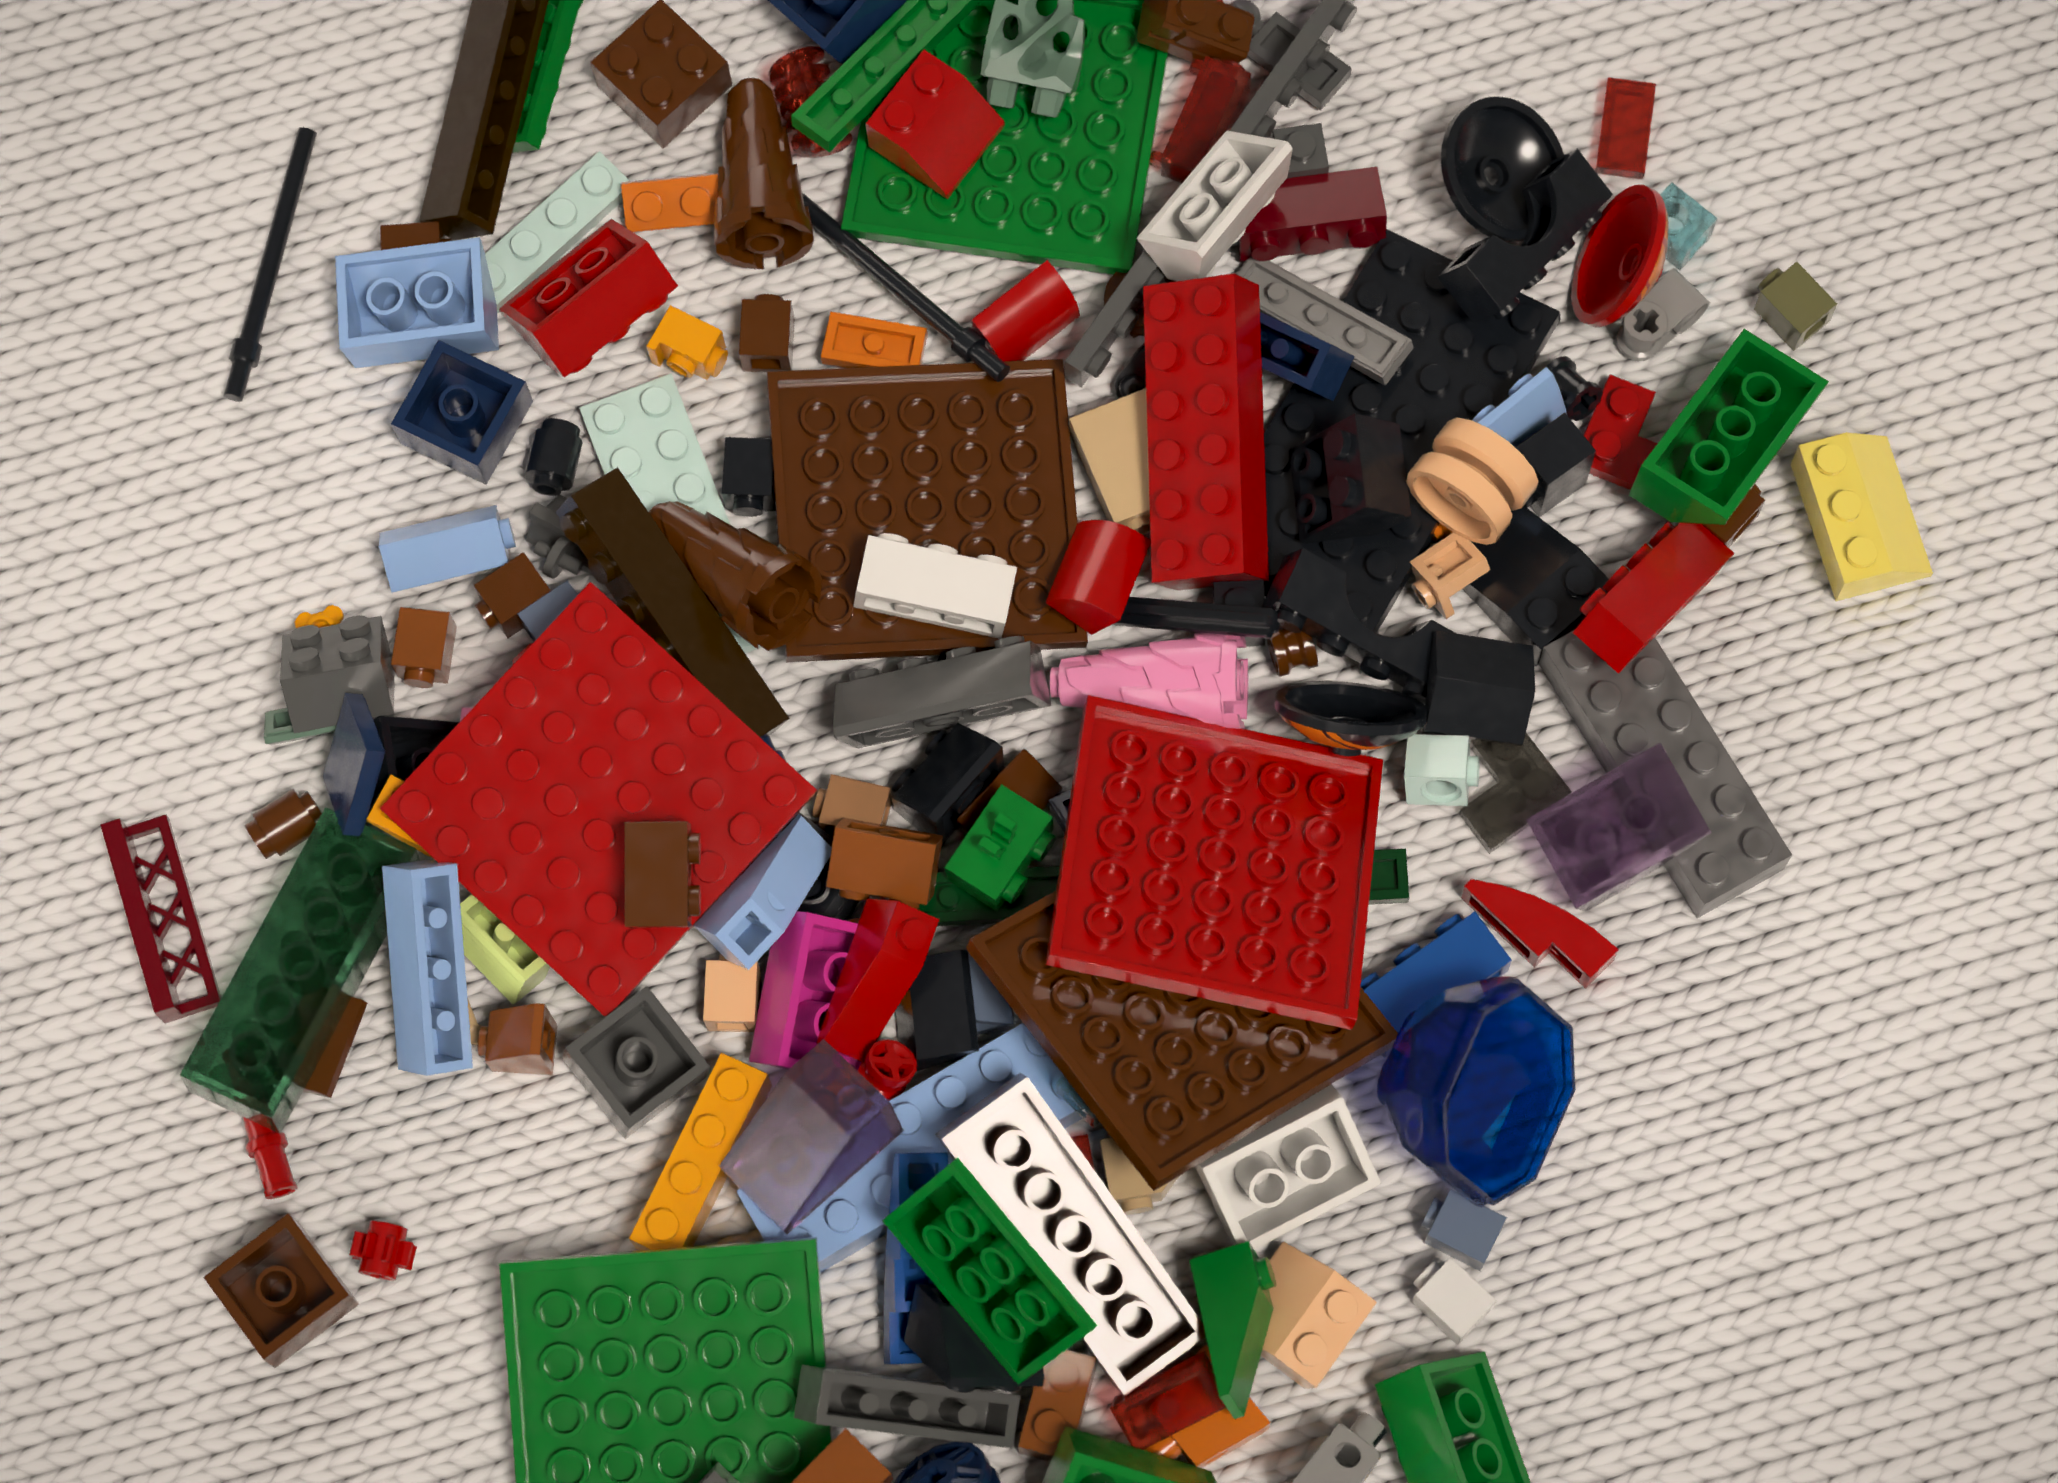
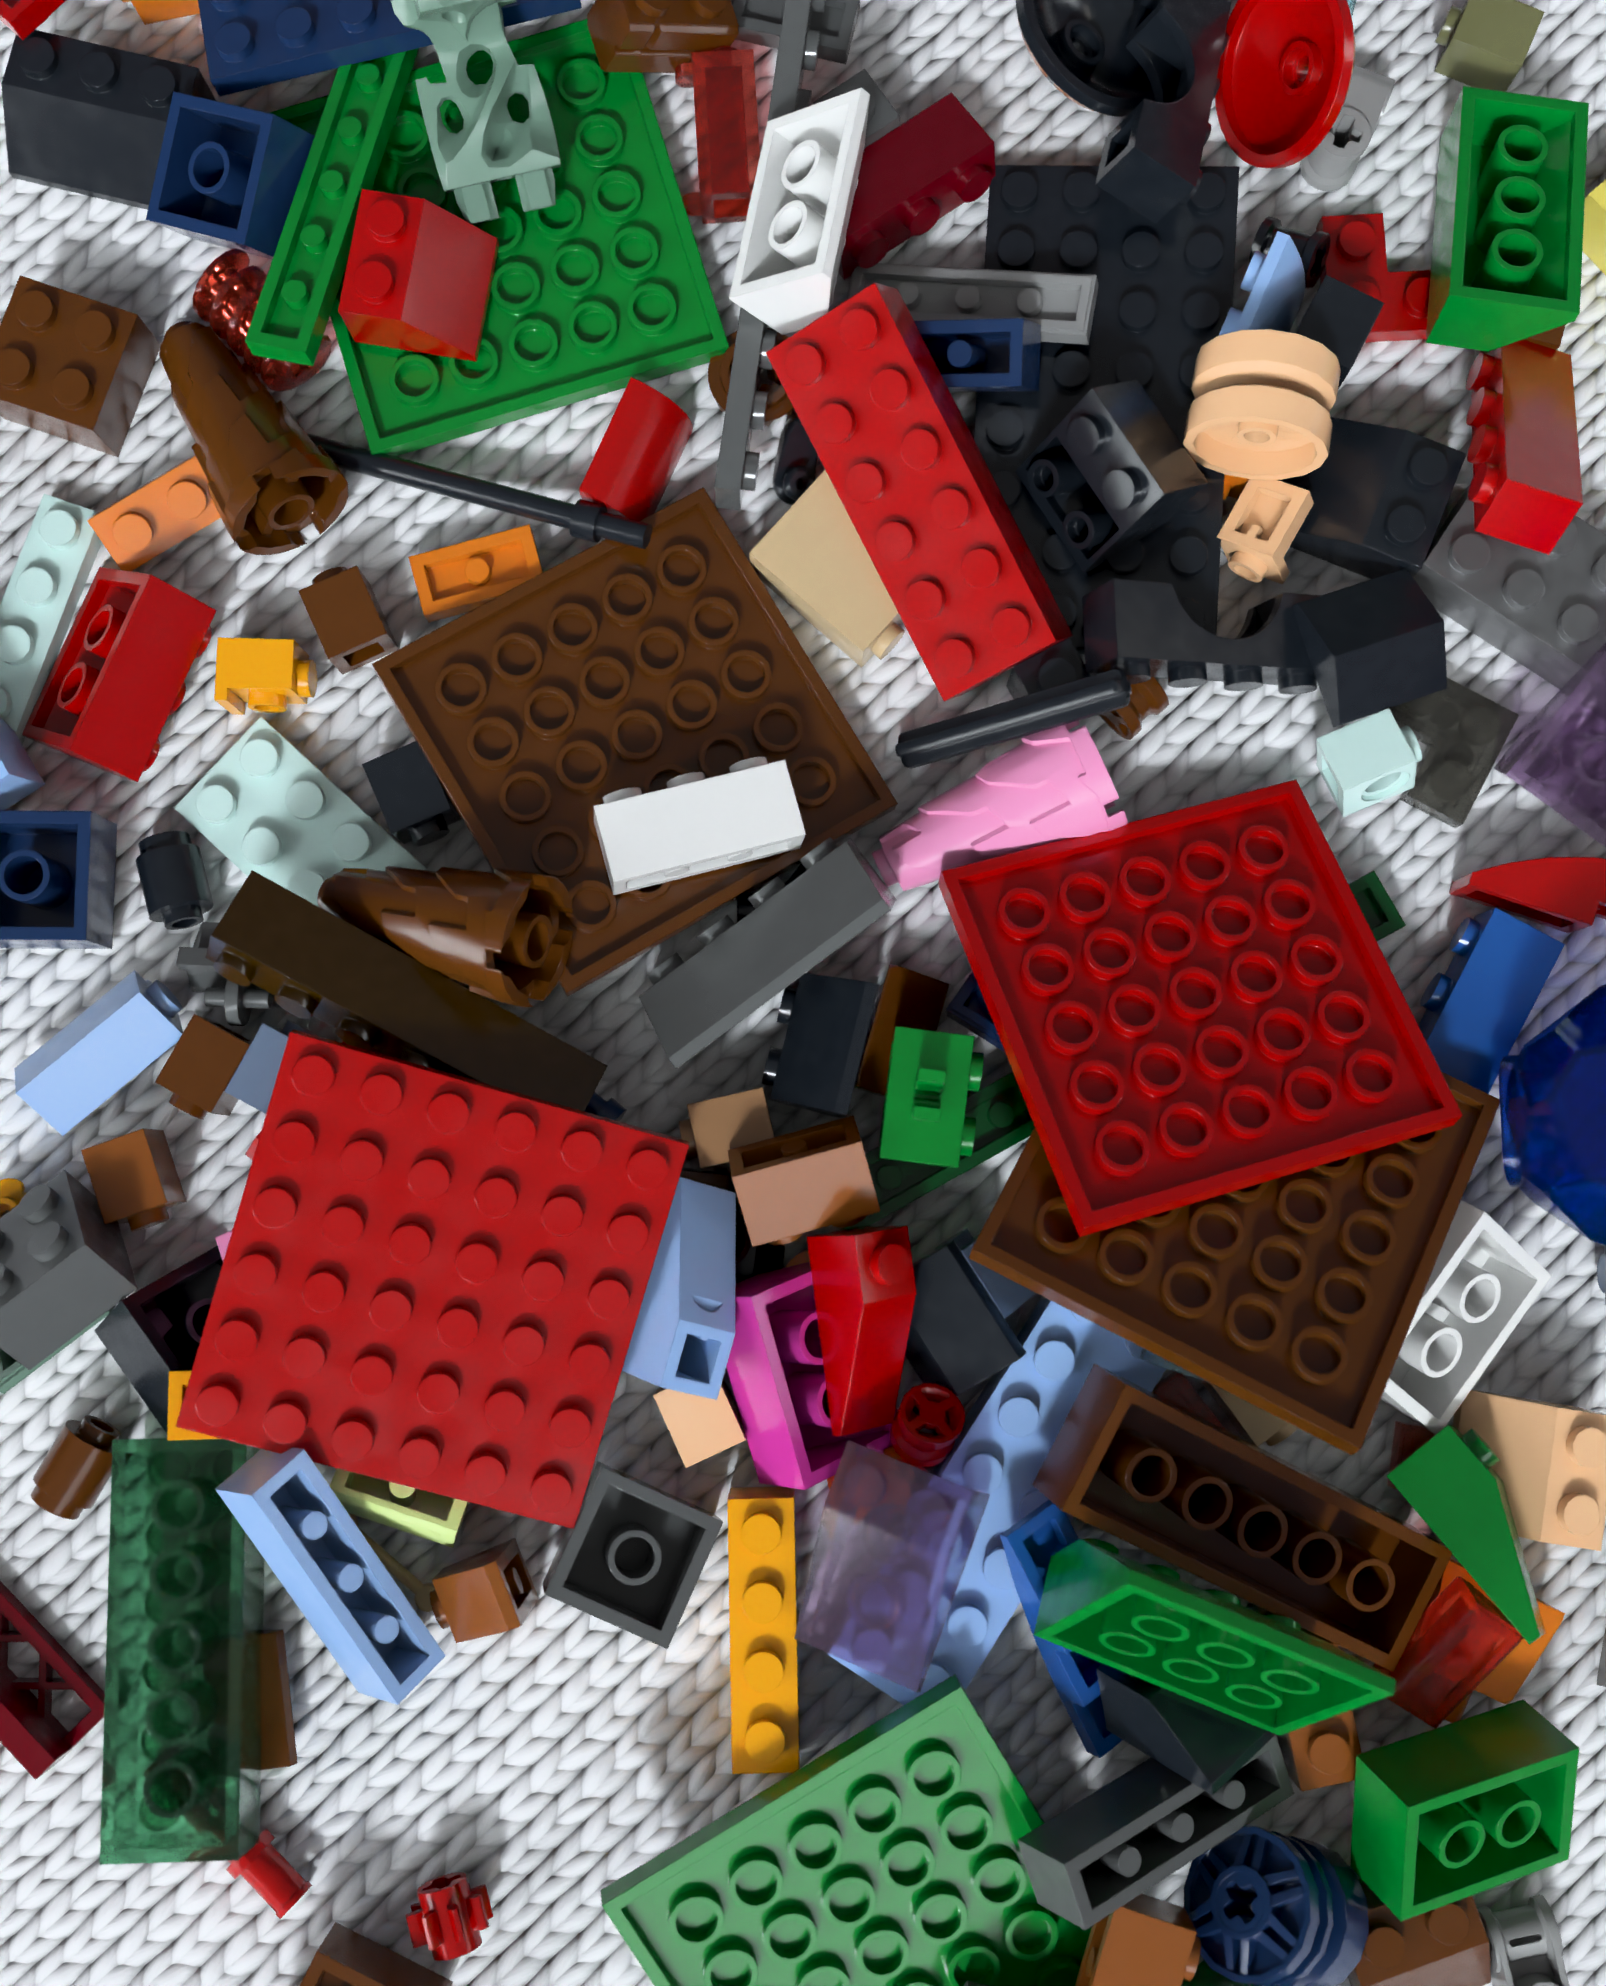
camera: 30 degrees left, 10 degrees up
(353, 764) = (118, 1379): dark blue tile -> none
(660, 874) = (557, 1348): reddish brown brick -> none
(1098, 573) = (873, 719): red brick -> none
(1350, 714) = (1247, 745): black dish -> none

